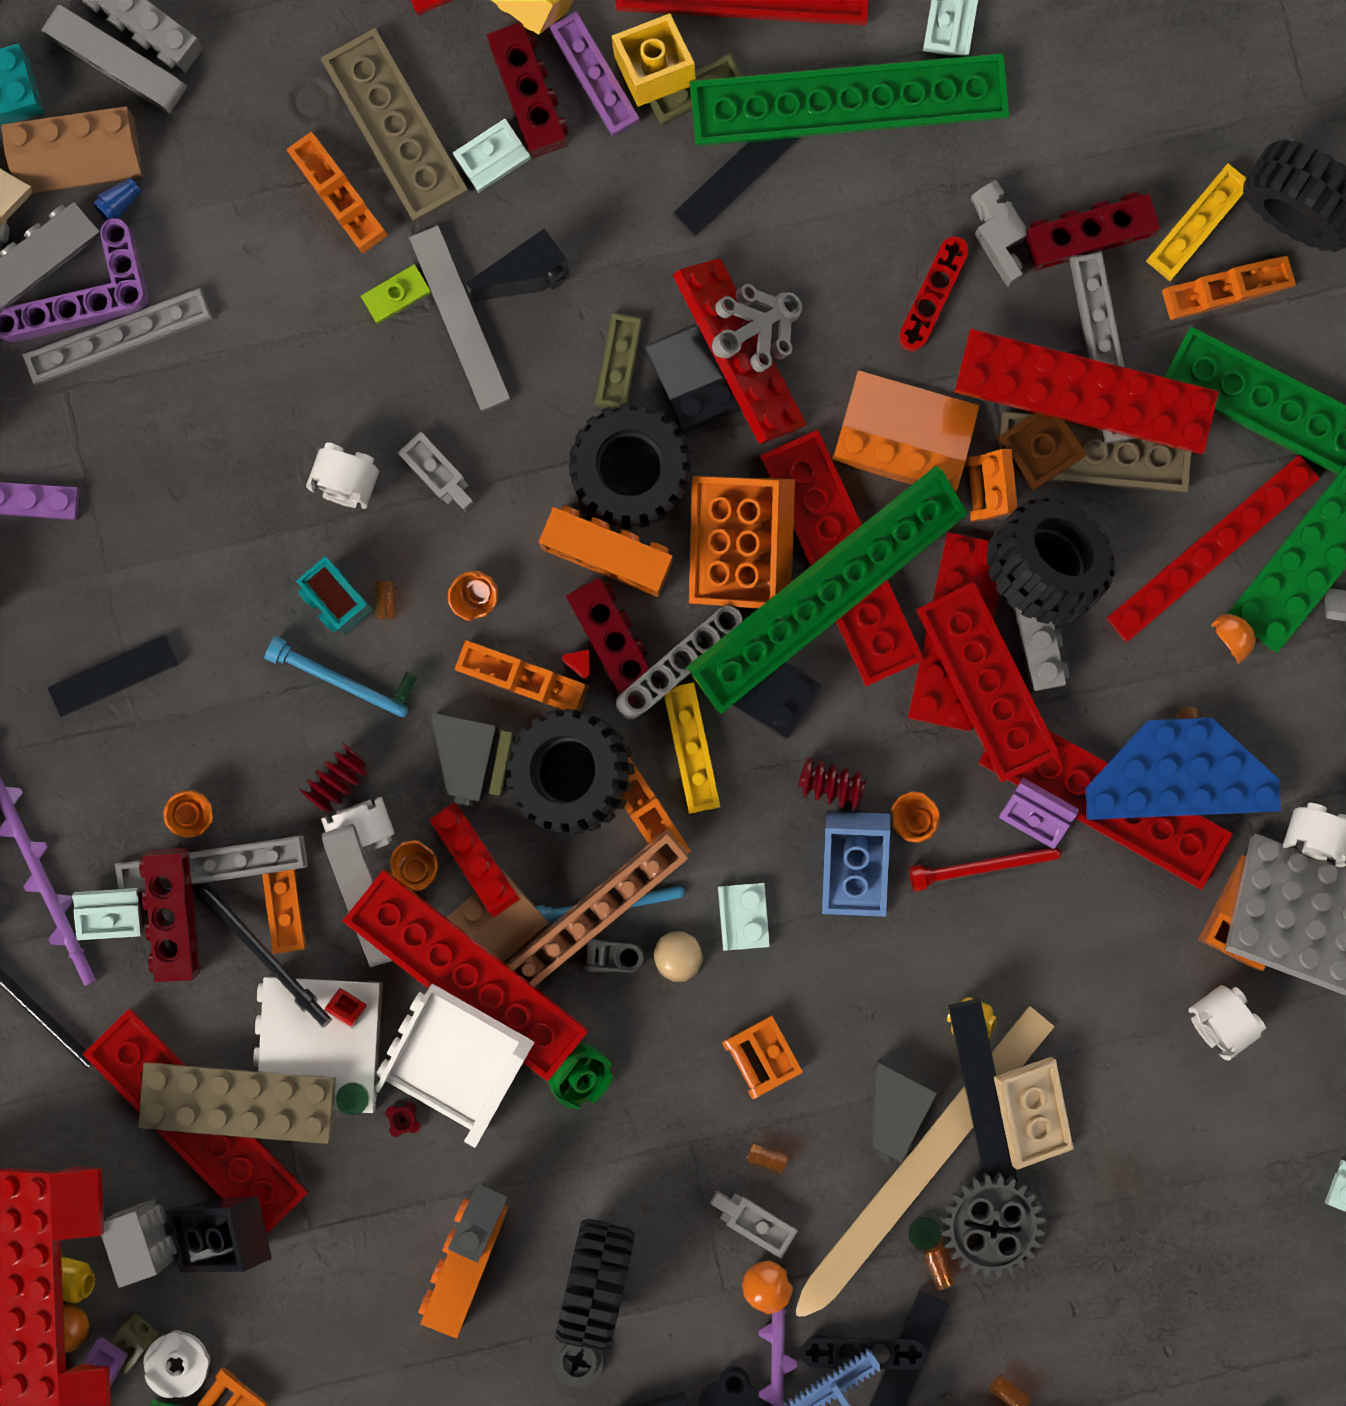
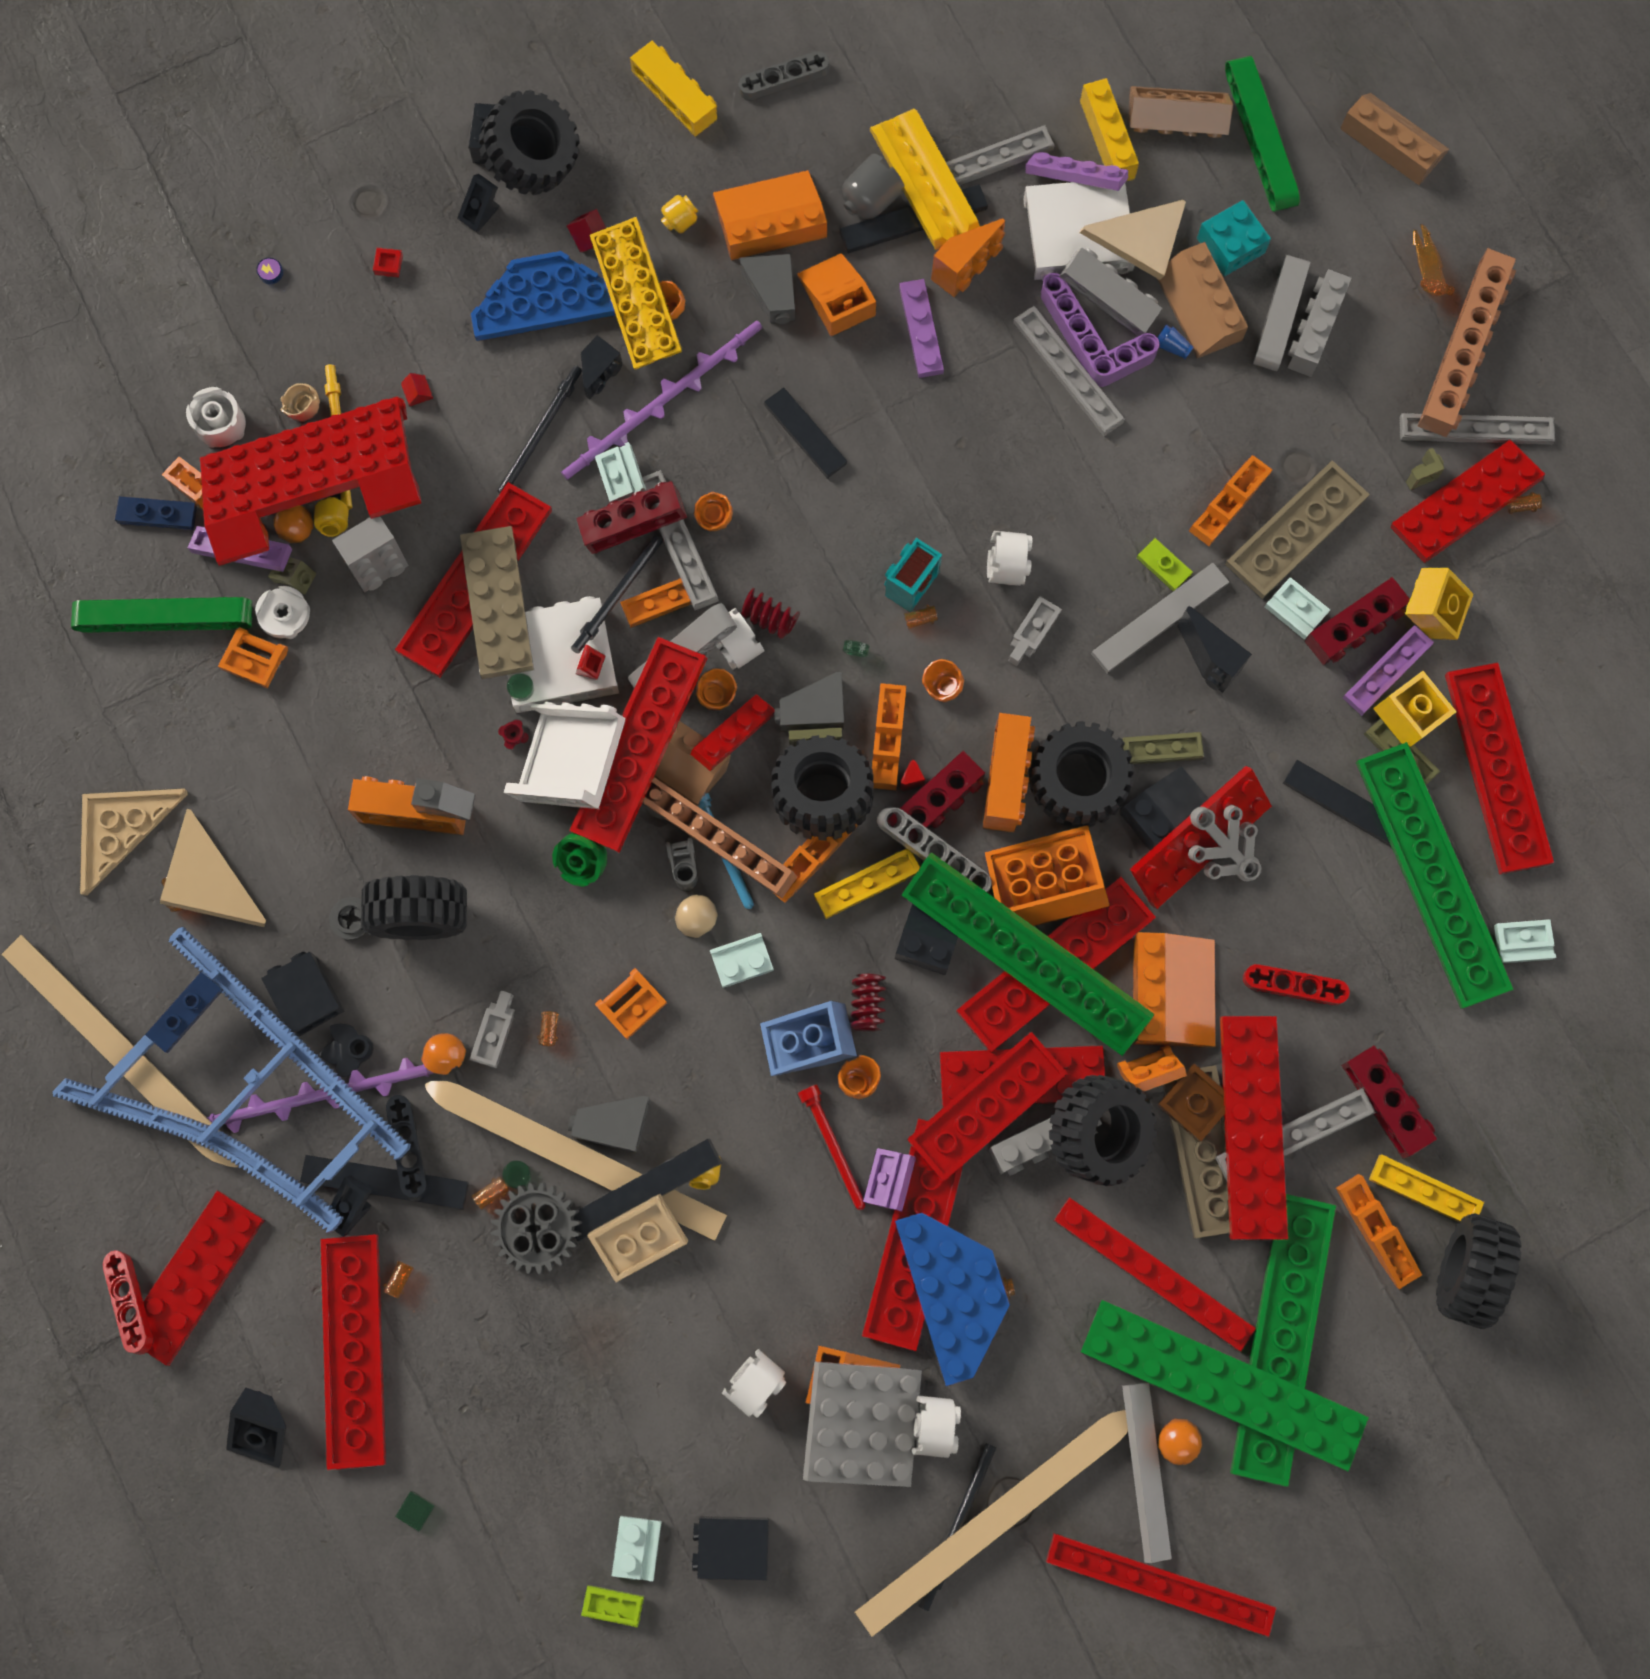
camera: 75 degrees right, 10 degrees down
(219, 1235) = (390, 617): black slope -> none
(280, 652) = (858, 548): dark azure piece -> none
(1000, 232) = (1366, 1025): light grey plate -> none
(1236, 635) = (1084, 1309): orange hair -> none

